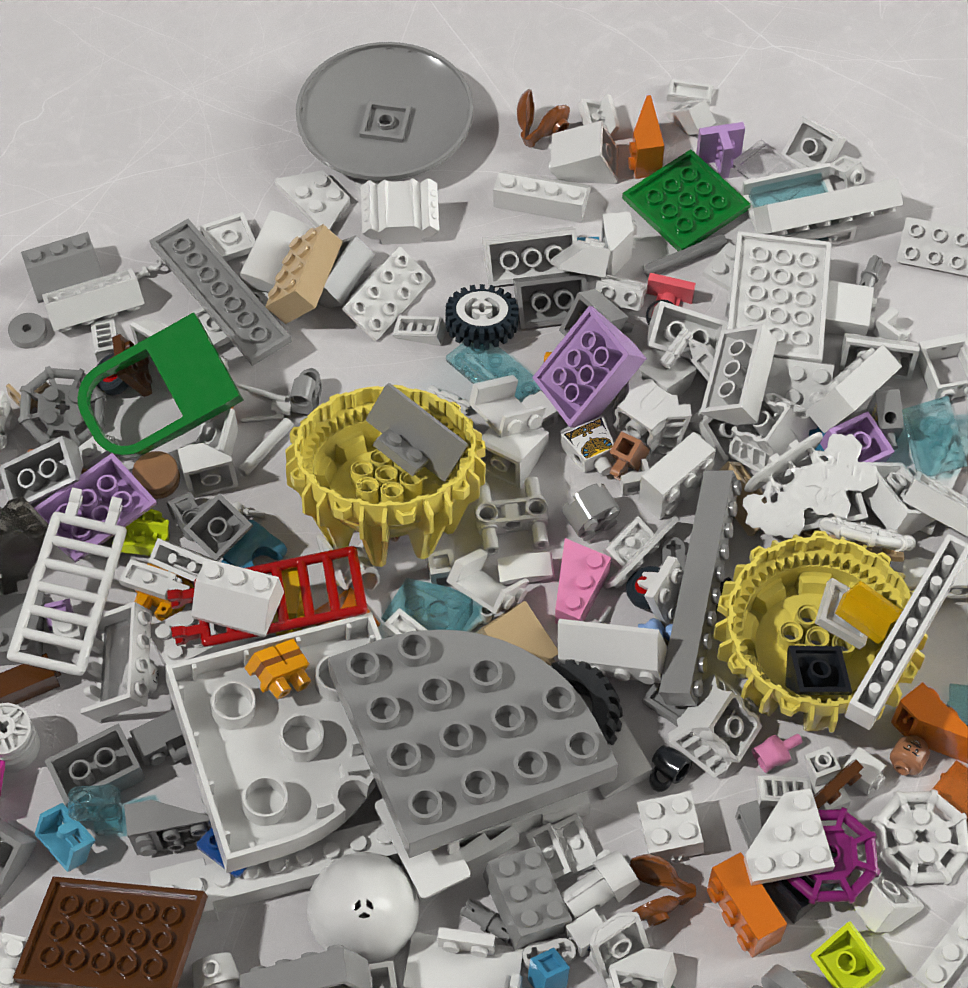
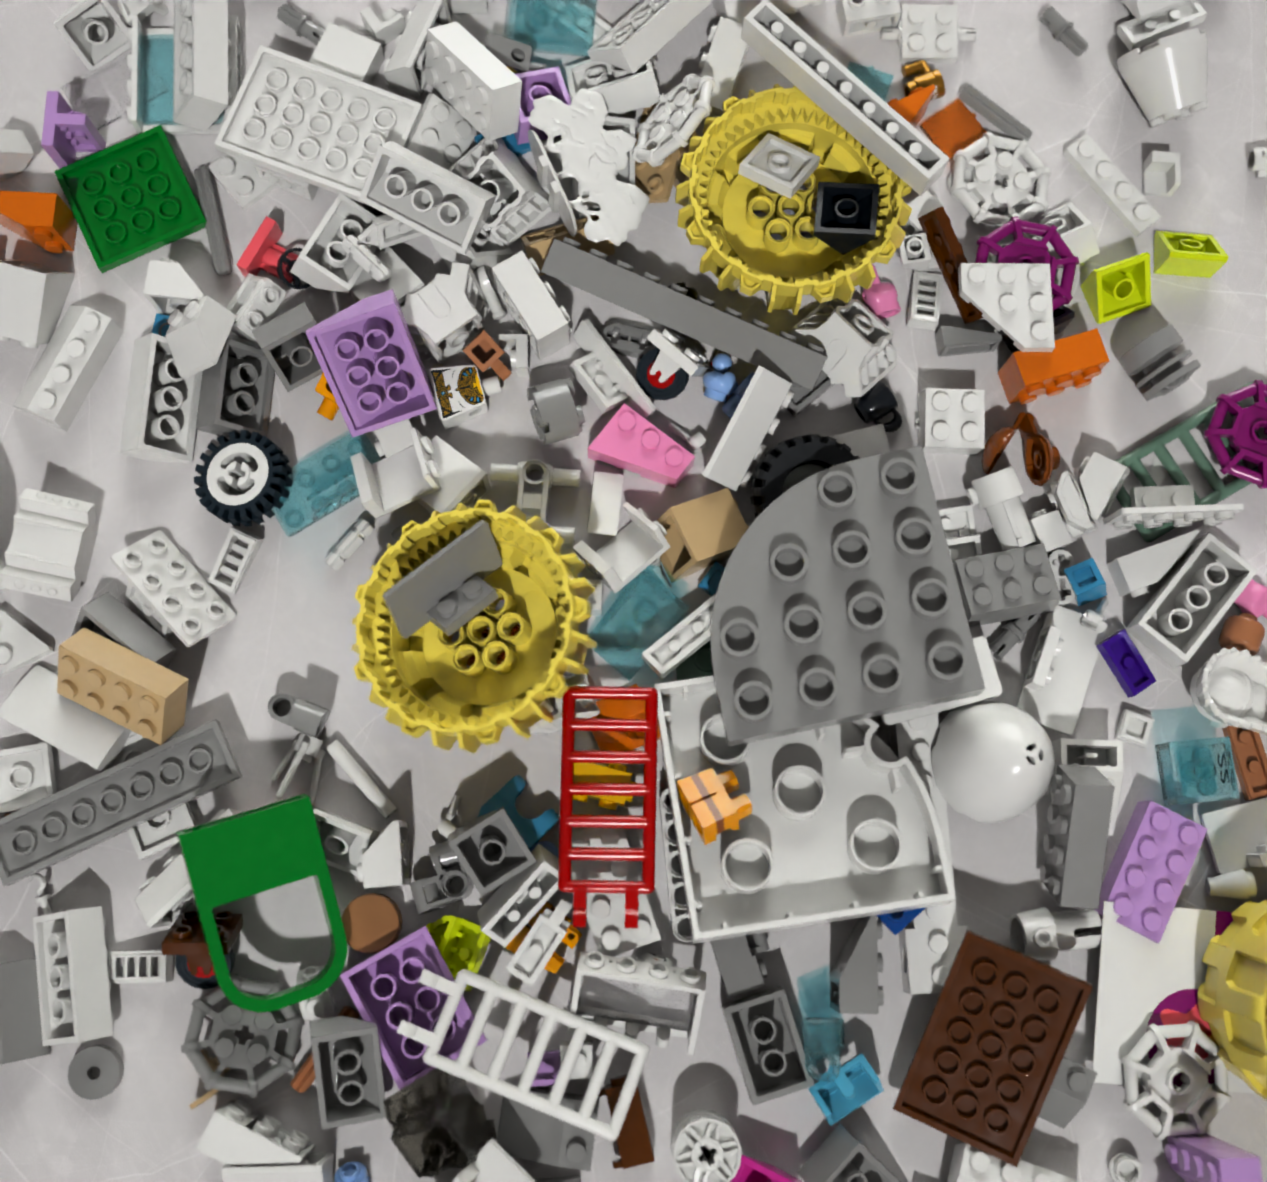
camera: 85 degrees left, 20 degrees up
(236, 597) = (610, 842): white slope -> none
(867, 611) = (788, 141): yellow panel -> none

